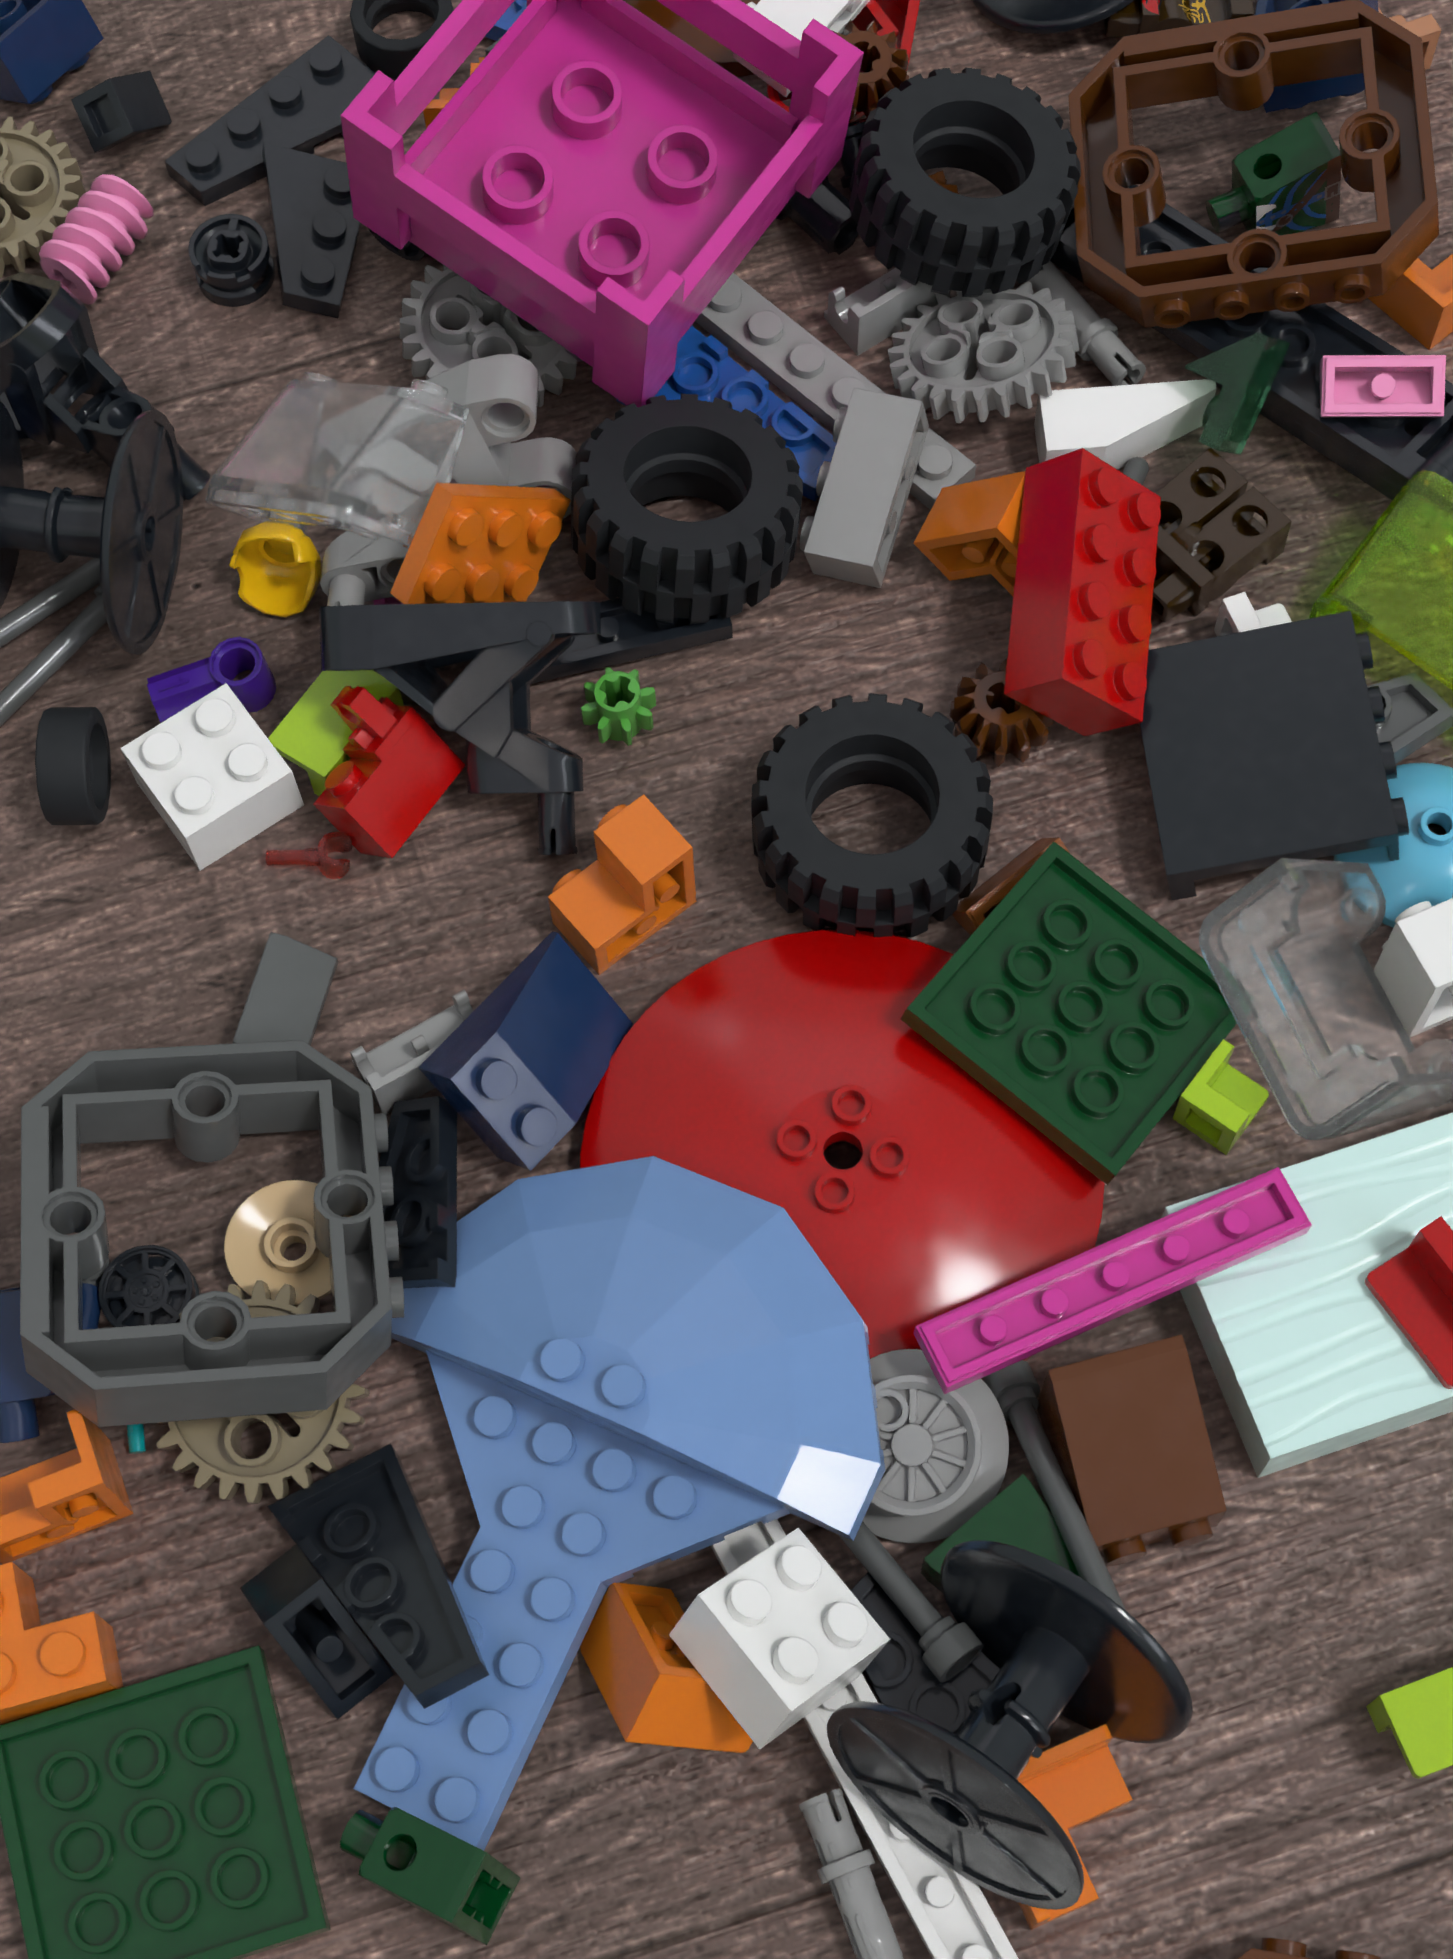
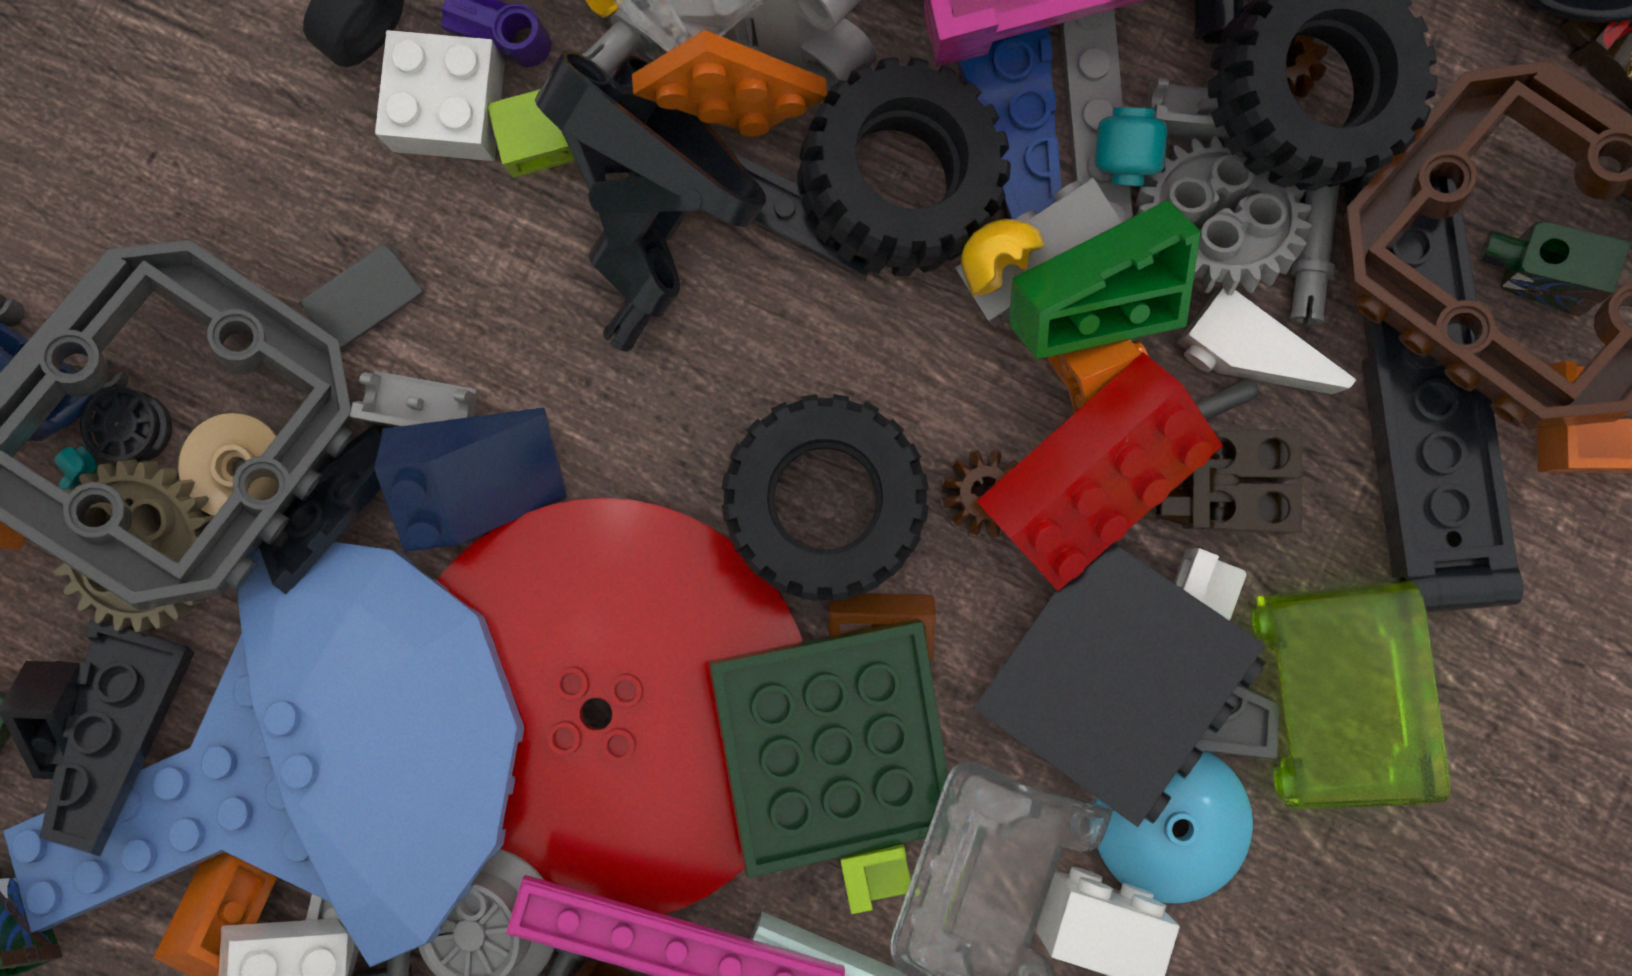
camera: 45 degrees right, 20 degrees up
(318, 856) = (463, 203): clear red hand -> none
(392, 773) = (540, 199): red hinge -> none
(618, 706) = (751, 259): bright green gear -> none
(630, 890) = (626, 406): orange brick -> none
(830, 491) = (993, 249): none -> yellow hair
(858, 350) = (1131, 145): none -> teal head
(949, 445) = (1109, 287): none -> green wedge
(1246, 376) = (1369, 403): clear green slope -> none
(1382, 385) = (1459, 495): bright pink slope -> none

